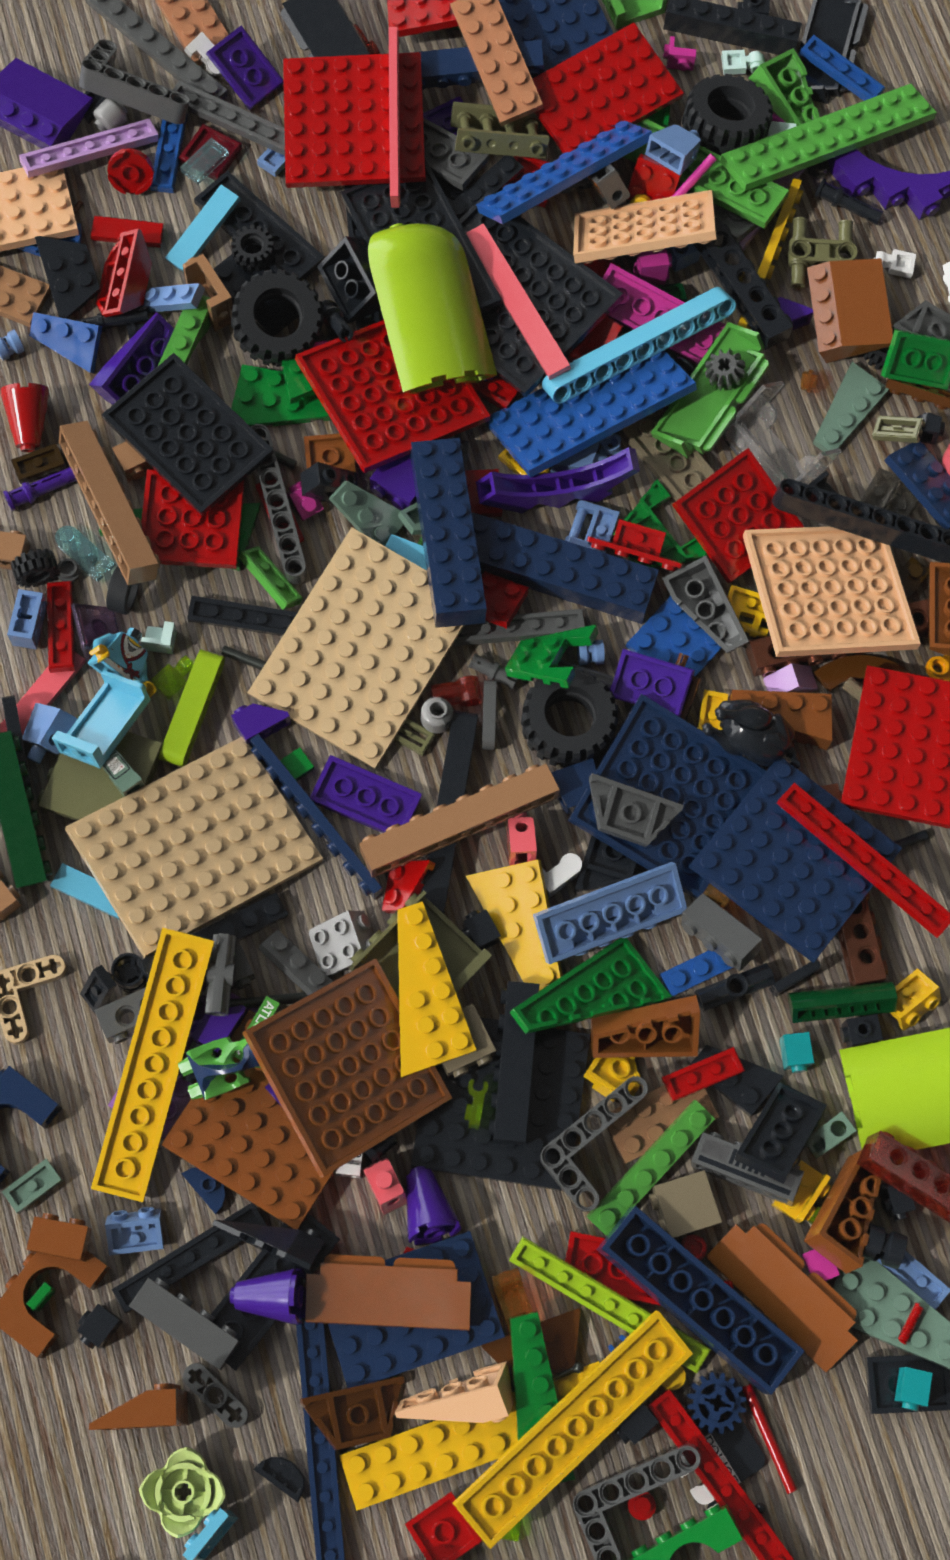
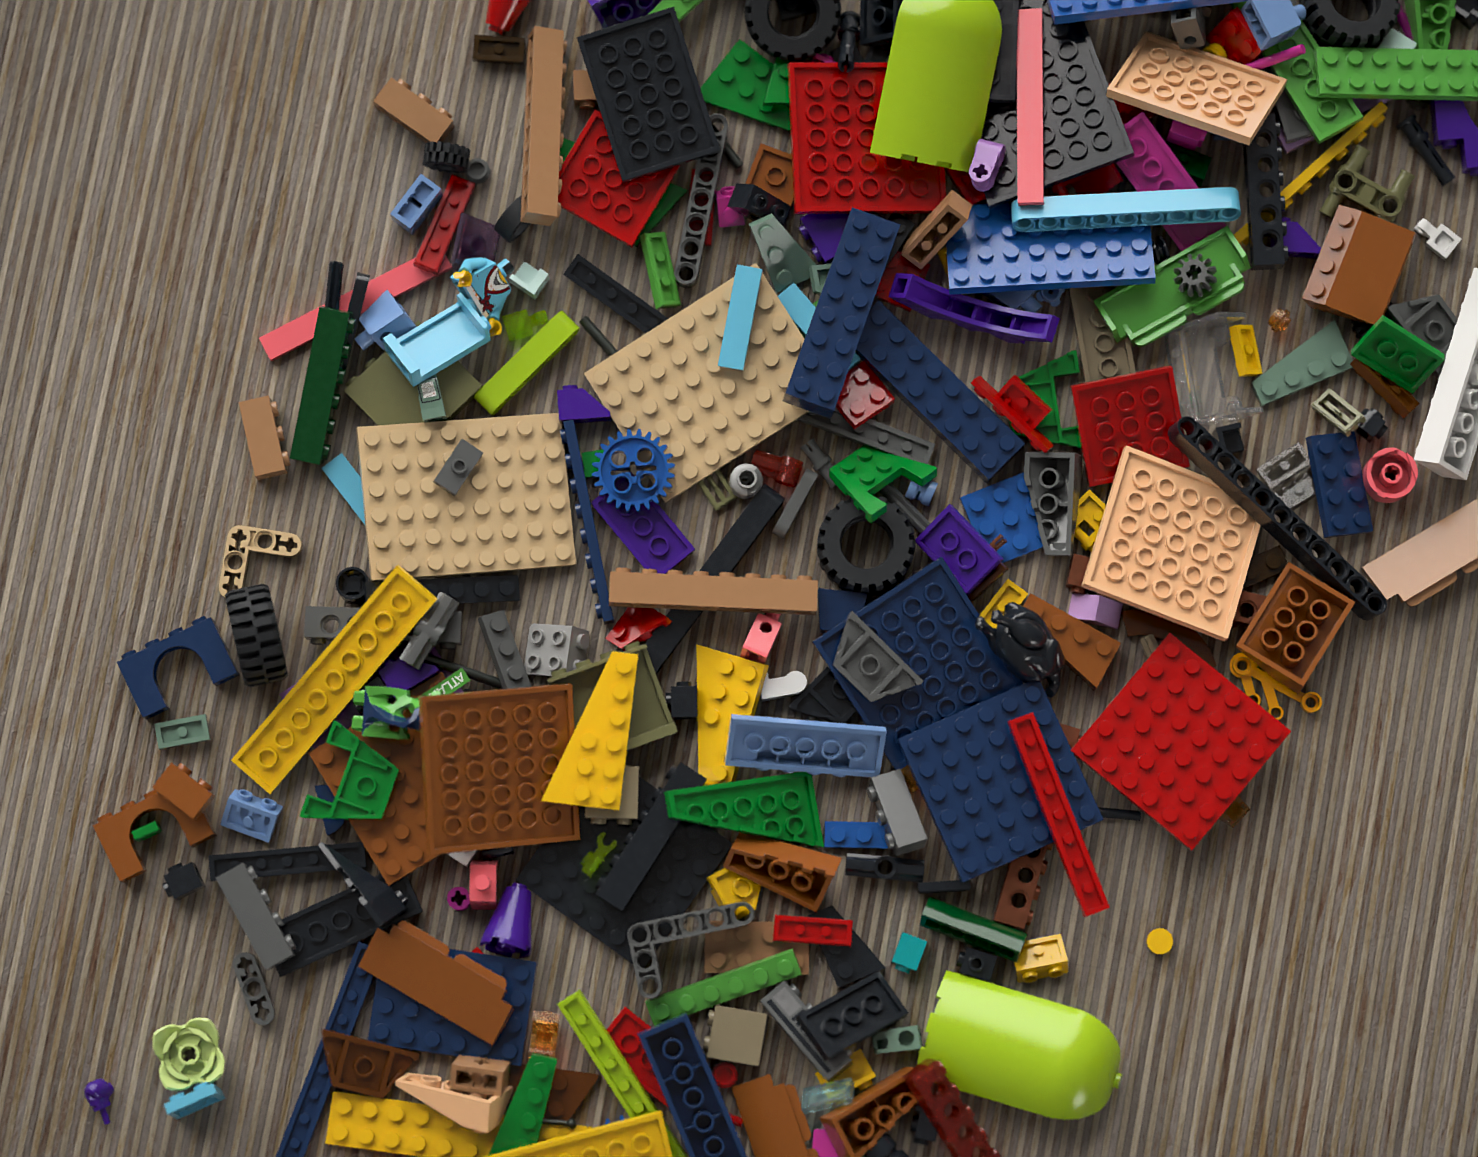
camera: 30 degrees right, 10 degrees up
(30, 492) = (477, 75): dark purple pin -> none
(60, 1058) = (256, 635): none -> black tyre
(83, 551) = (499, 158): clear light blue plate -> none
(98, 988) = (319, 586): black plate -> none
(153, 1408) = (203, 977): dark orange slope -> none
(175, 819) = (458, 467): none -> dark grey plate
(228, 1146) = (364, 785): none -> green wing
(273, 1296) = (340, 931): dark purple cone -> none
(283, 1475) = (278, 1083): black plate -> none
(347, 769) = (631, 447): none -> blue gear
(362, 577) = (740, 317): none -> medium azure tile
(376, 1210) = (453, 894): none -> magenta bush
(472, 1365) = (480, 1075): none -> medium nougat brick
(491, 432) = (936, 229): none -> medium nougat brick
(505, 360) = (986, 160): none -> piece
(601, 525) = (996, 371): medium blue plate -> none
(791, 412) = (1245, 350): none -> yellow plate
(799, 1216) = (827, 1095): none -> clear light blue tile

